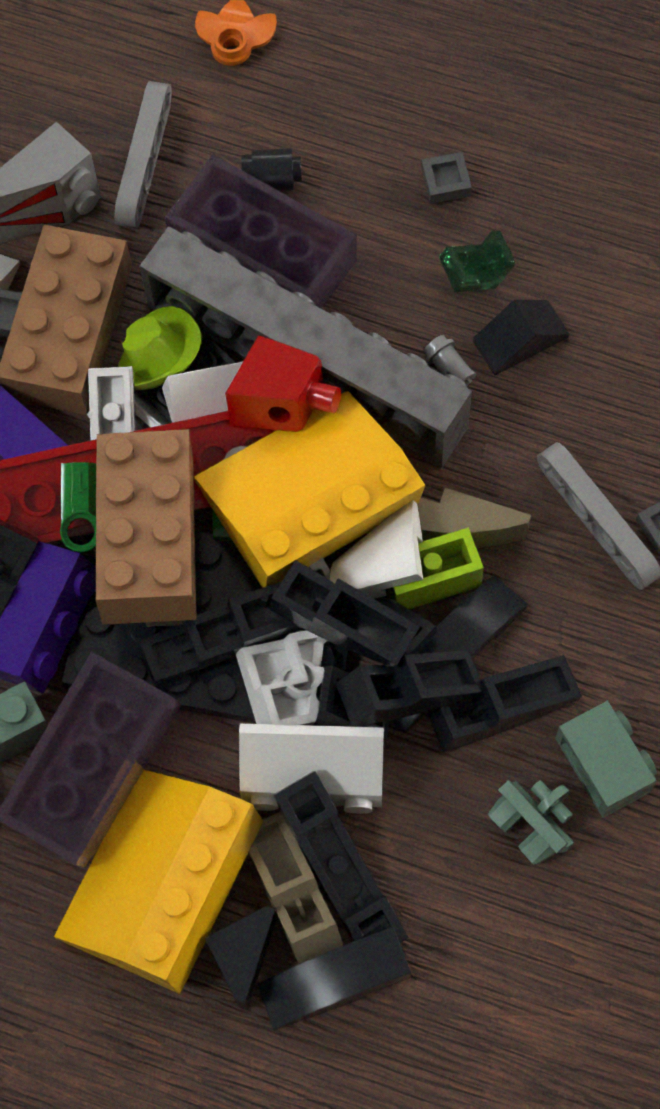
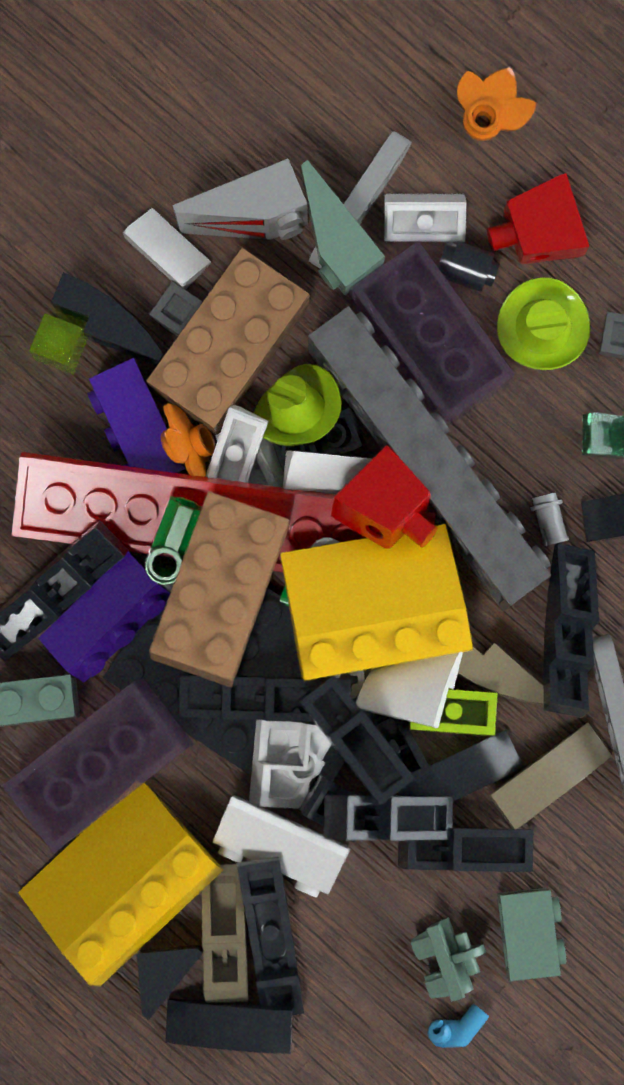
camera: 20 degrees right, 15 degrees up
(58, 423) = (187, 442): none -> orange plate
(136, 180) = (340, 241): none -> sand green slope
(224, 141) = (425, 217): none -> white slope
(326, 110) = (542, 224): none -> red torso
(366, 194) = (543, 324): none -> lime hat
(513, 453) = (568, 635): none -> black slope
(555, 599) = (550, 776): none -> dark tan slope
(578, 891) = (457, 1032): none -> dark azure arm

